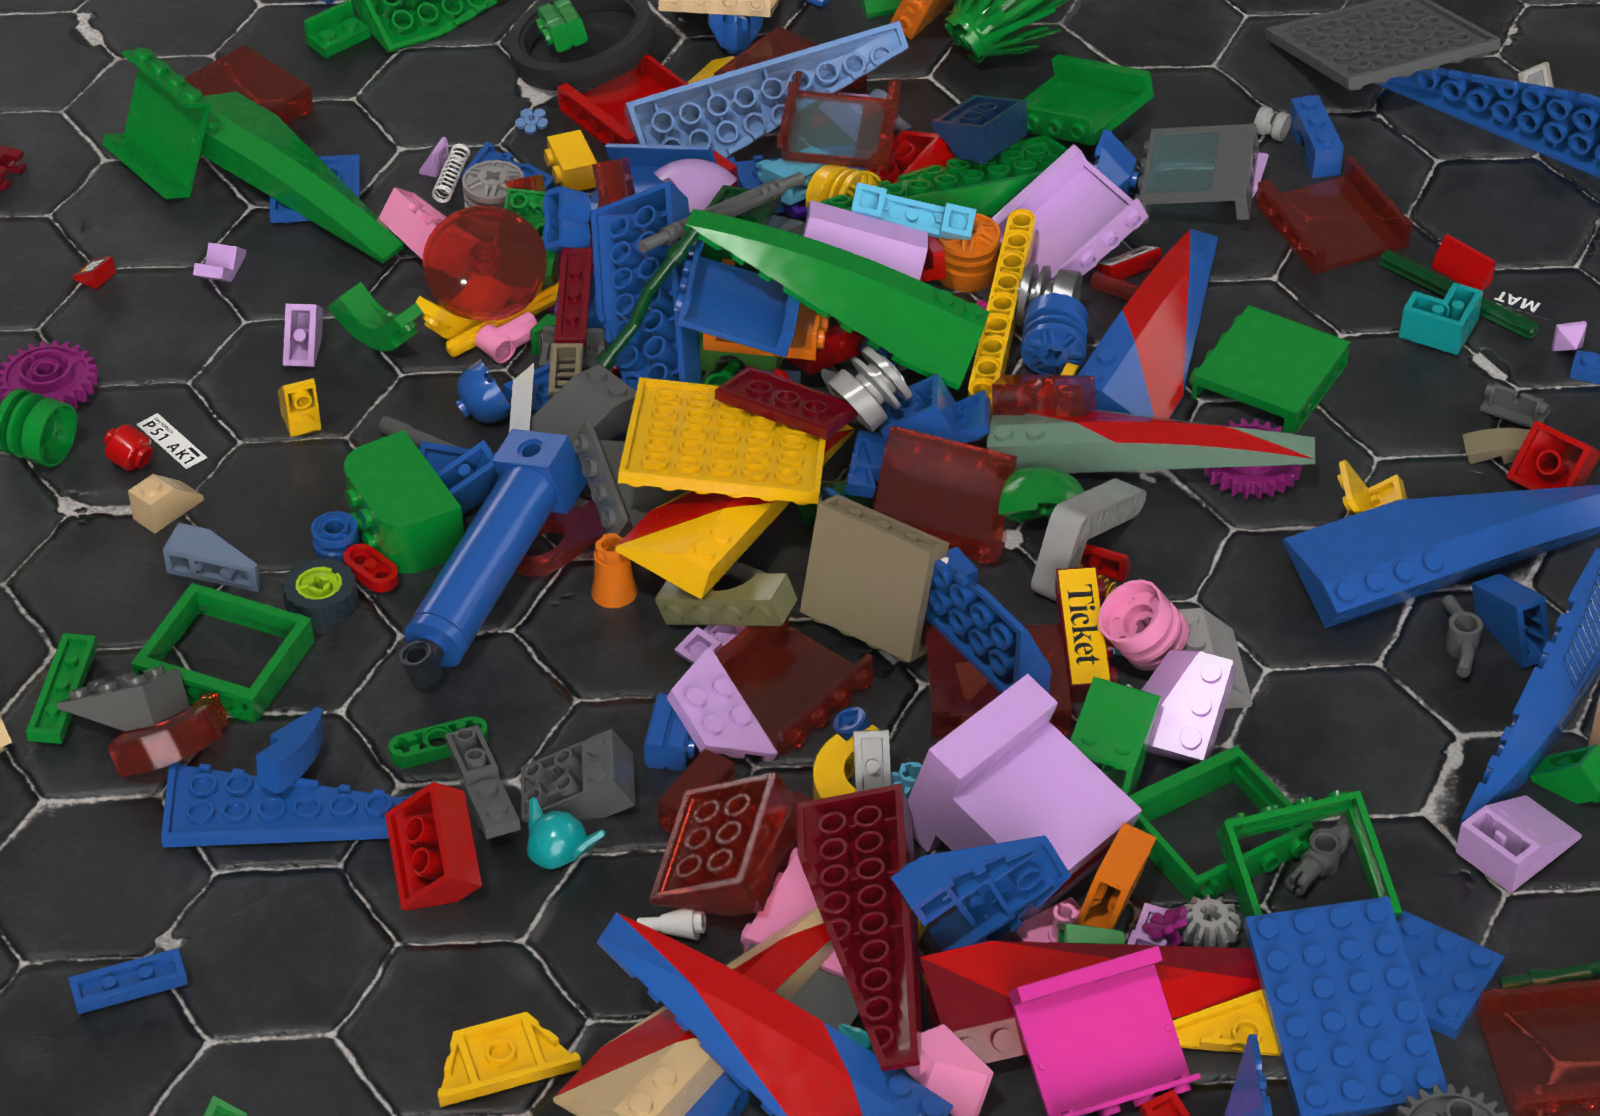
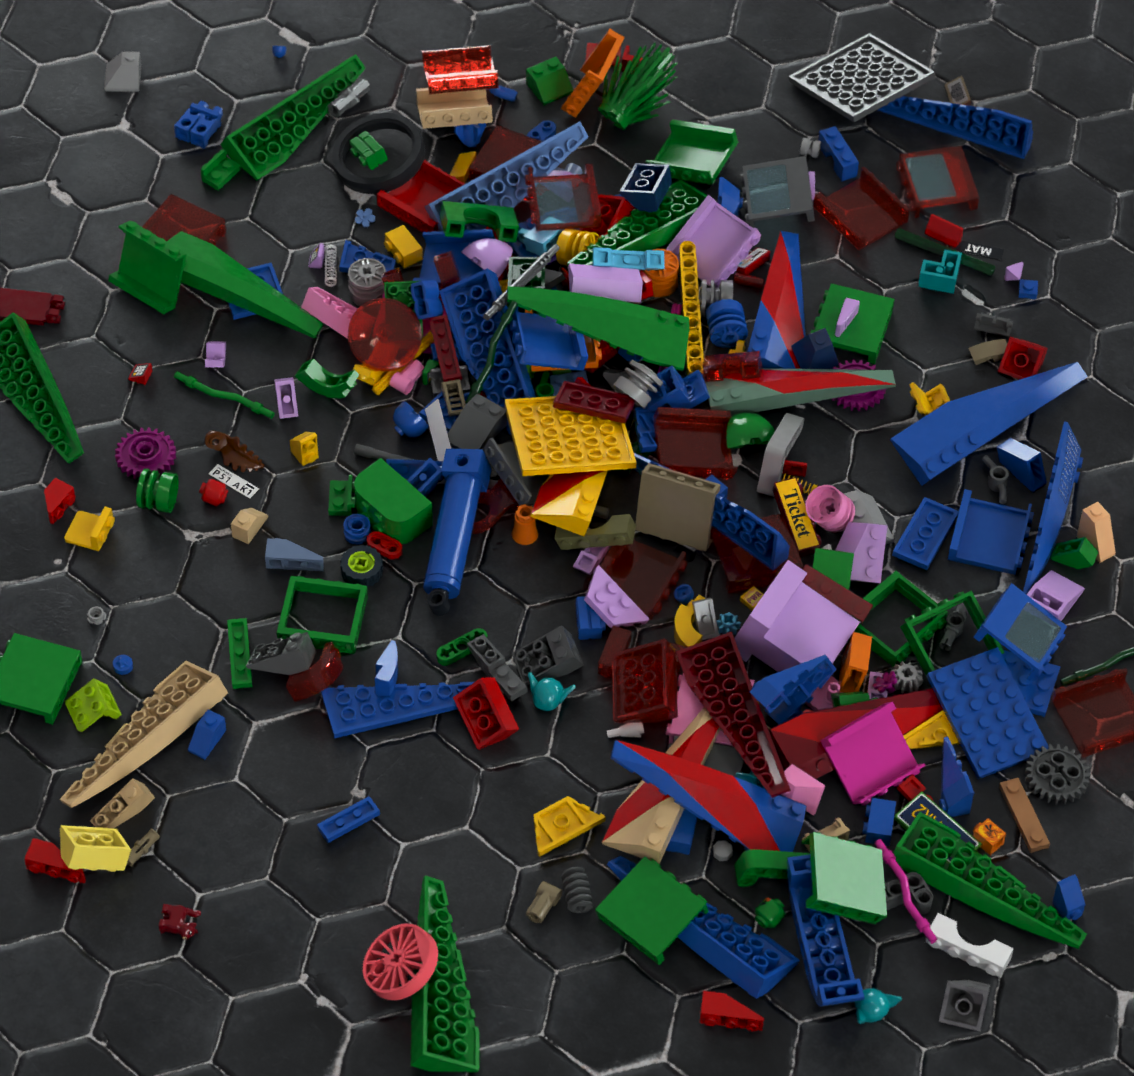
camera: 15 degrees left, 10 degrees up
(185, 396) = (233, 452): none -> reddish brown plant
(250, 342) = (255, 407): none -> green bar
(326, 490) = (341, 497): none -> green bracket
(666, 122) = (499, 218): none -> green arch
(1113, 757) = (837, 594): none -> dark red brick
(1193, 393) = (815, 351): none -> dark blue slope
(1259, 349) = (847, 314): none -> lavender slope
(1310, 700) = (925, 533): none -> blue plate
(1425, 721) = (990, 535): none -> blue panel
(1445, 875) = (1023, 629): none -> panel
(1471, 190) = (937, 178): none -> panel

